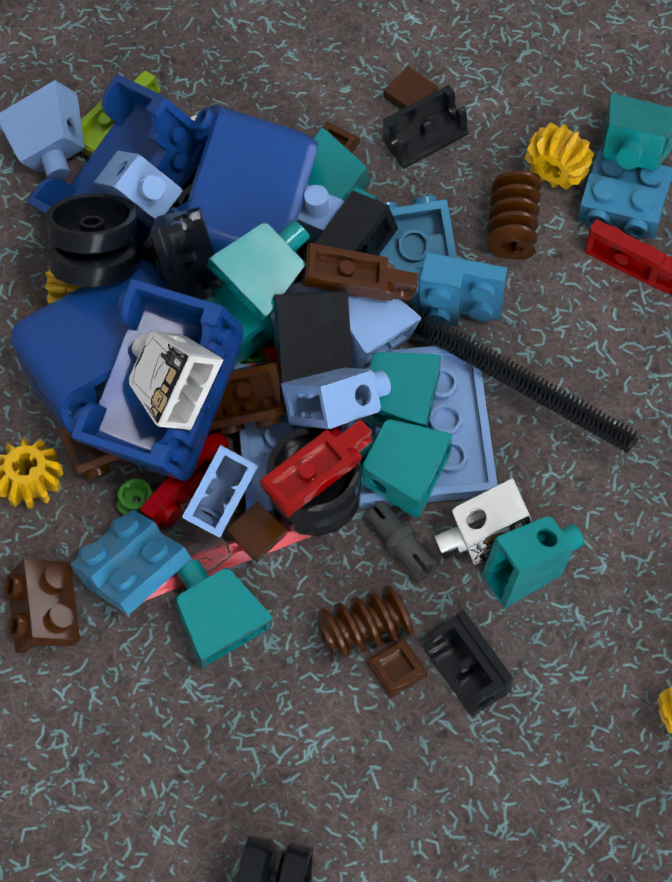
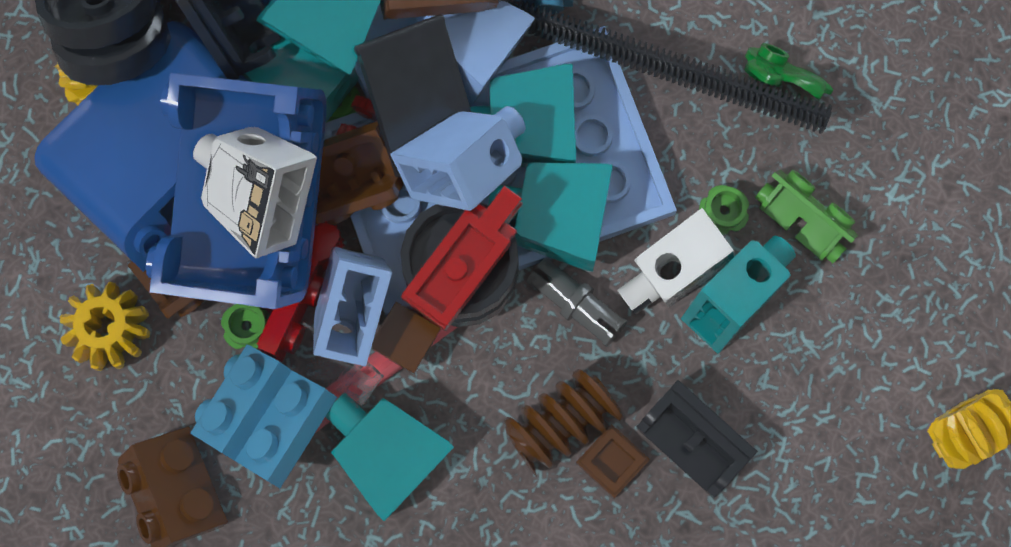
camera: 15 degrees left, 15 degrees up
(544, 491) = (733, 199): none -> bright green plate
(593, 504) = (794, 200): none -> bright green hinge
(604, 399) = (771, 67): none -> green plate

